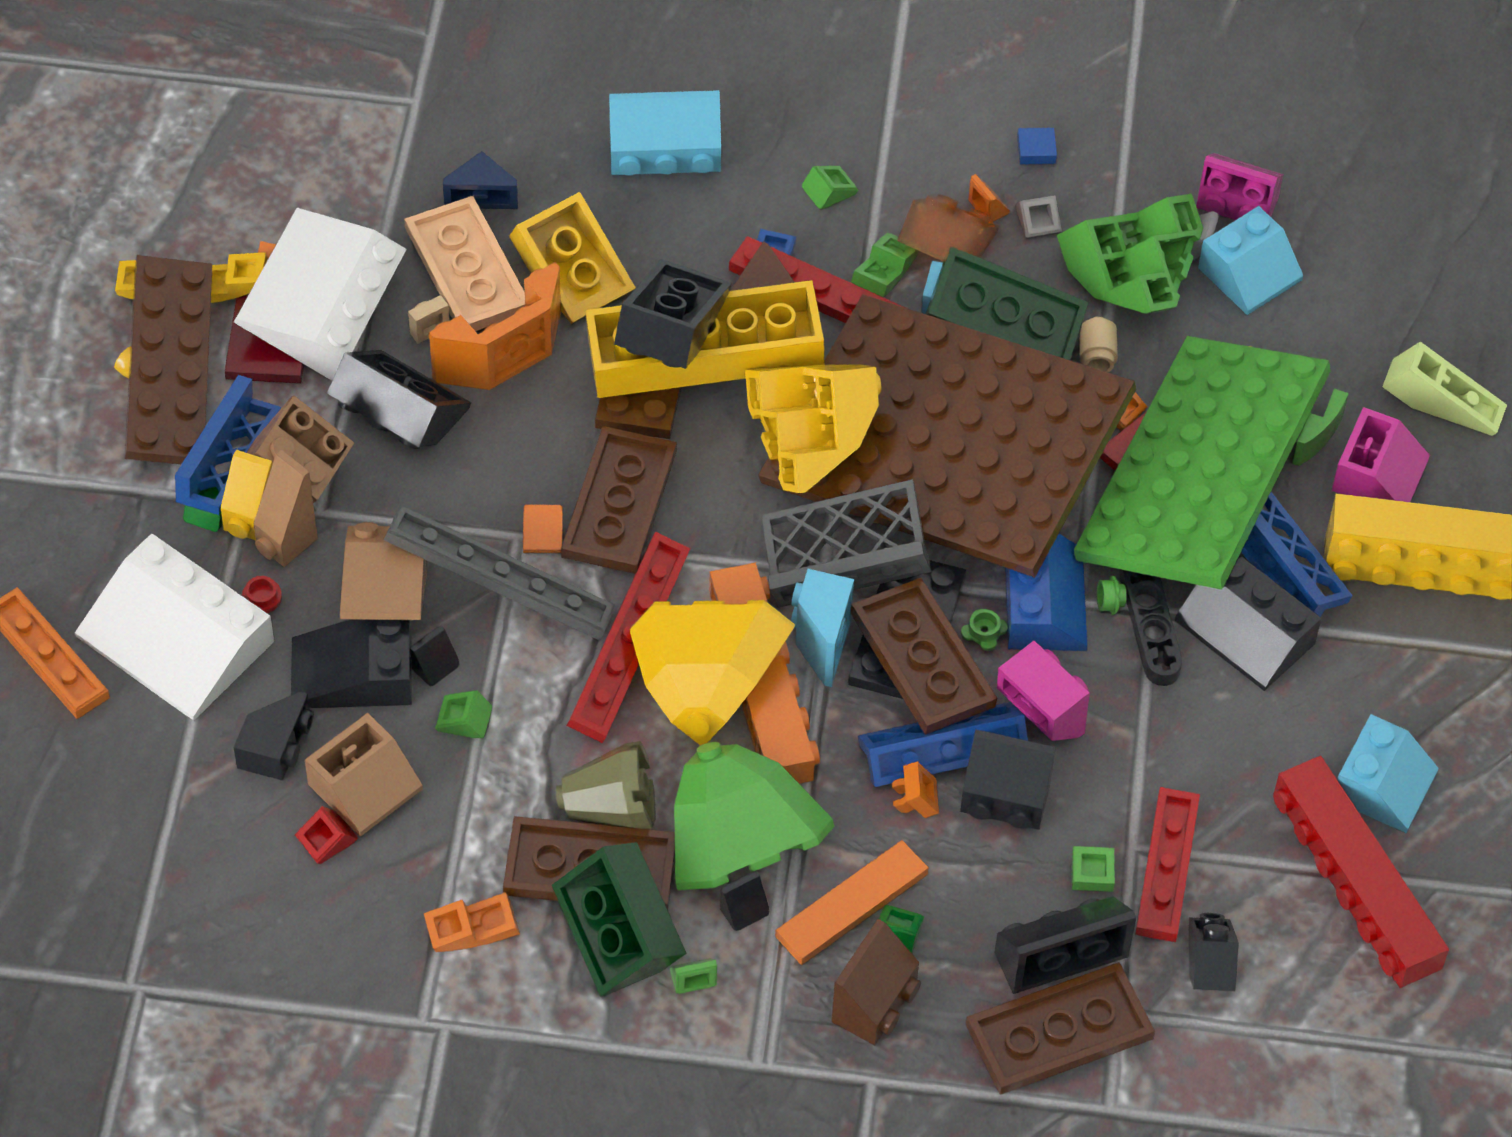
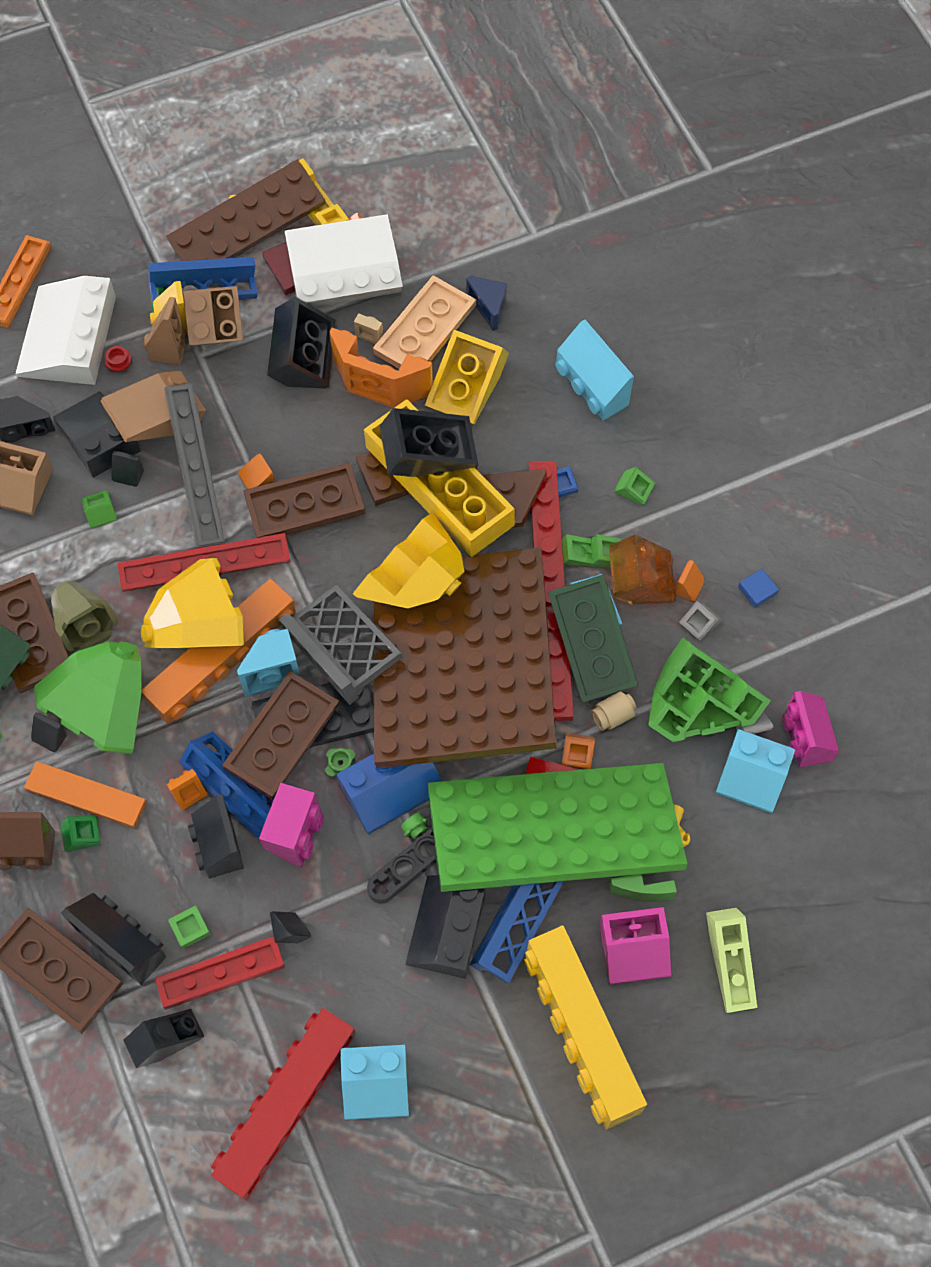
camera: 60 degrees right, 10 degrees up
(1158, 771) = (288, 928): none -> black slope

